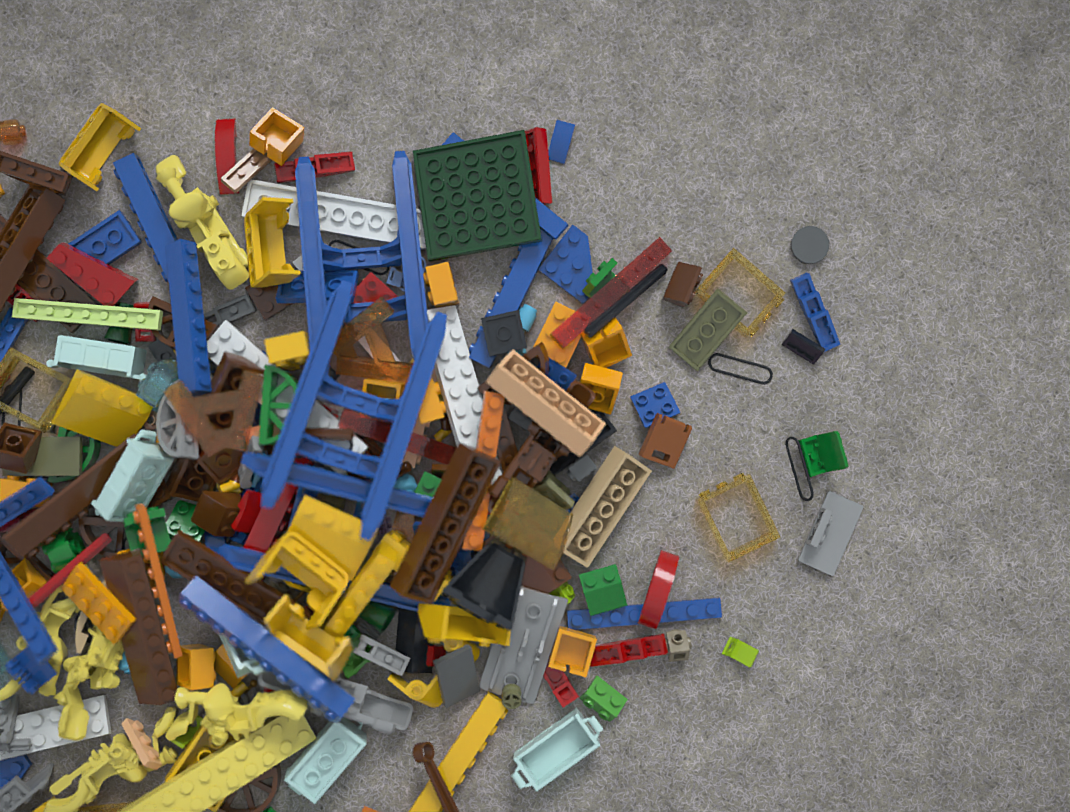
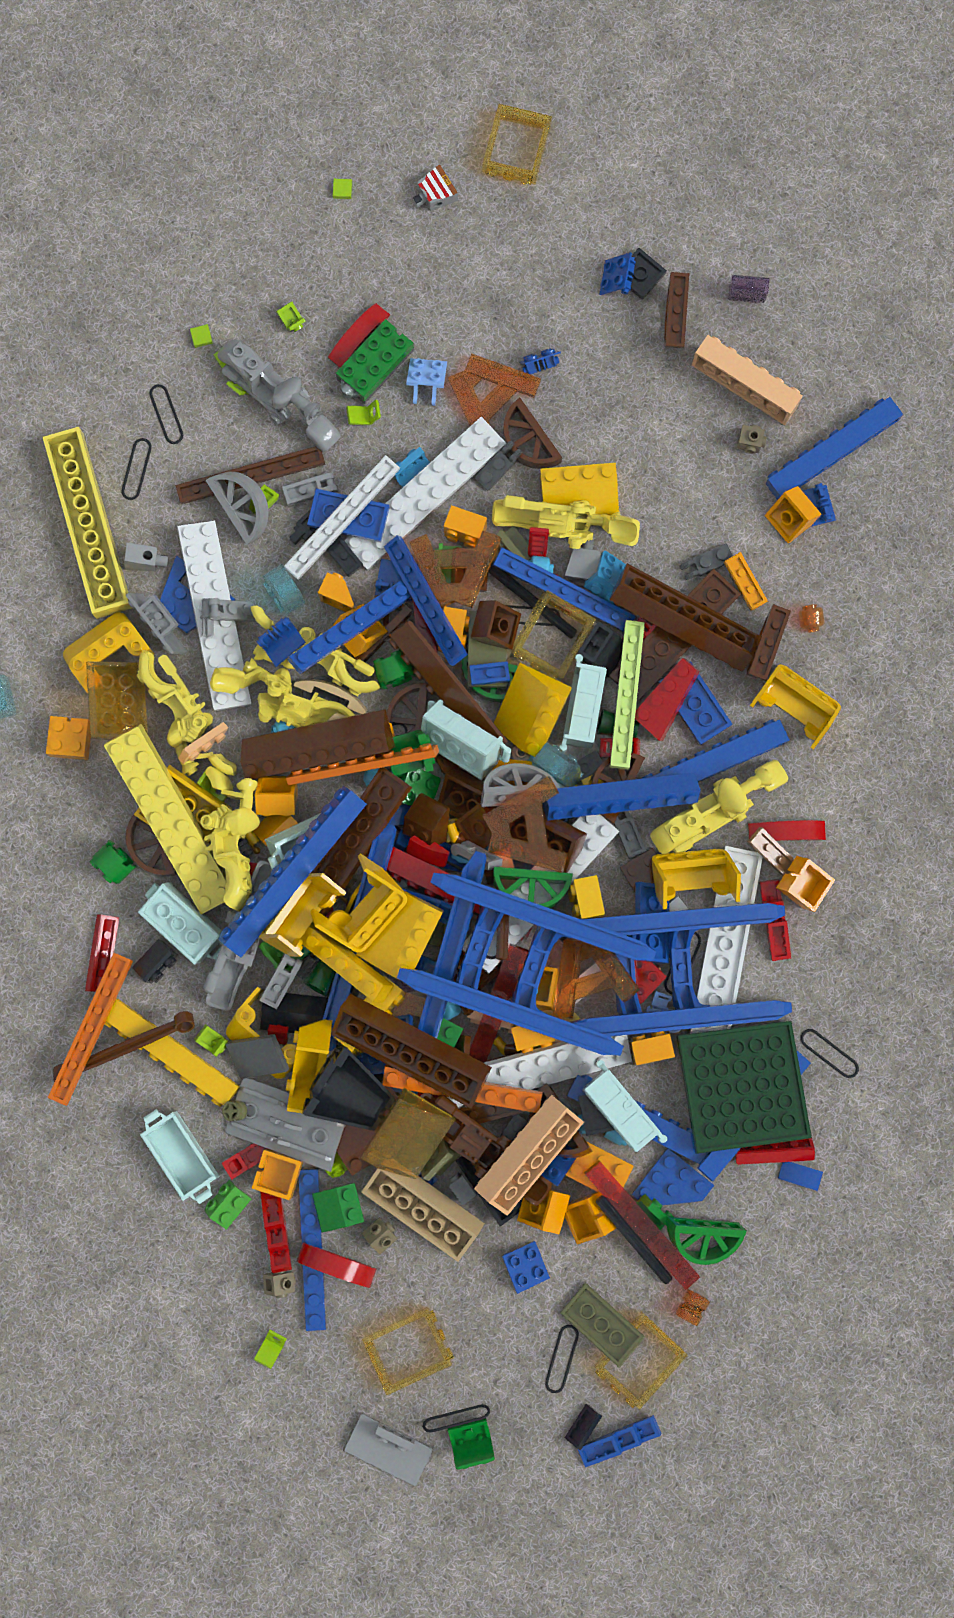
camera: 90 degrees right, 5 degrees down
(40, 339) = (602, 648): none -> black slope
(59, 578) = (376, 678): red axle -> none
(65, 453) = (489, 673): none -> blue plate
(98, 603) = (342, 705): light orange plate -> none
(366, 782) = (155, 961): none -> black slope
(436, 111) = (821, 1057): none -> black piece
(443, 722) = (211, 1040): none -> lime bracket
(500, 312) = (621, 1110): none -> light aqua container
(615, 205) = (732, 1231): none -> green window
(628, 547) = (380, 1235): none -> dark tan brick
(667, 438) = (492, 1279): dark orange container -> none
(682, 283) = (649, 1299): reddish brown slope -> none
(688, 243) = (692, 1307): none -> clear orange wheel
(809, 244) = (690, 1438): dark grey tile -> none

